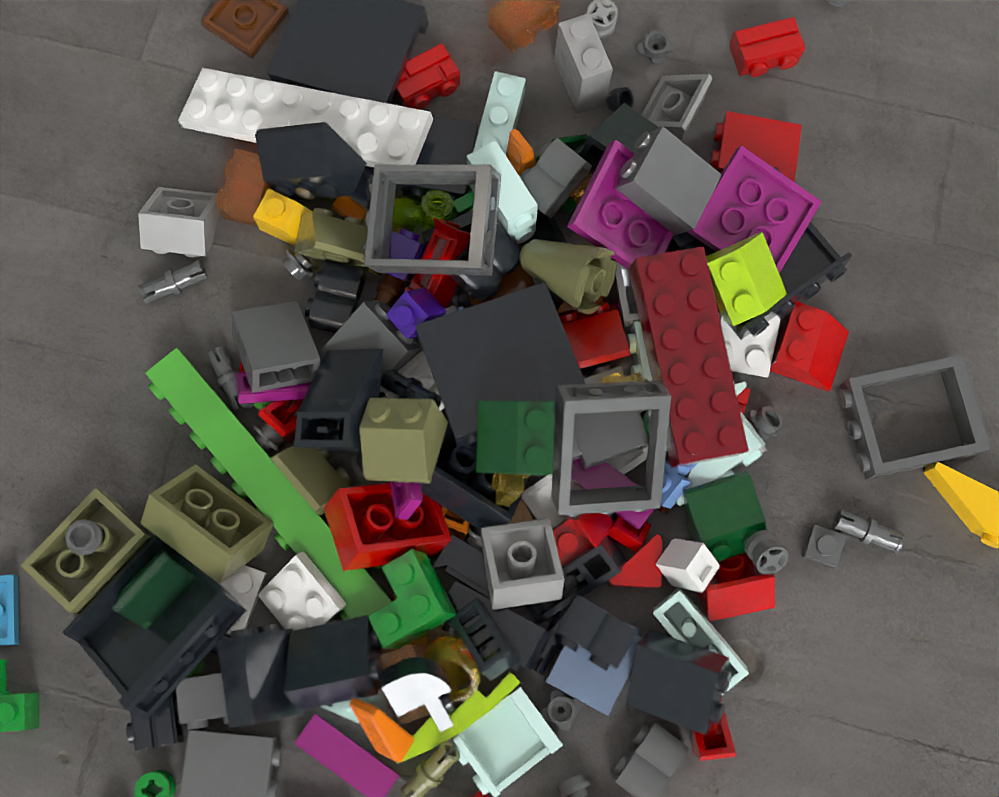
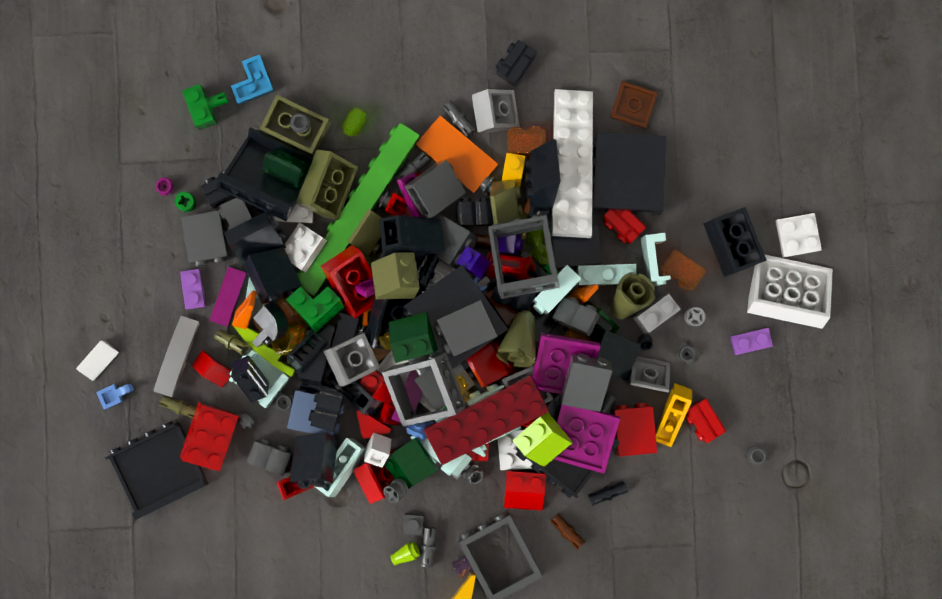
camera: 80 degrees right, 10 degrees up
(115, 167) = (516, 62): none -> black brick
(118, 453) = (353, 122): none -> clear neon green brick
(203, 314) = (447, 143): none -> orange tile
(495, 49) = (649, 256): none -> light aqua panel
(504, 757) = (250, 379): none -> black brick
(527, 343) = (465, 329): none -> dark grey brick
(546, 88) = (632, 295): none -> olive cone
(744, 86) = (673, 414): none -> yellow slope
(845, 221) = (608, 493): none -> black pin
(872, 572) = (407, 553): none -> lime cone
(892, 300) = (567, 531): none -> reddish brown pin
(915, 481) = (462, 567): none -> wheel

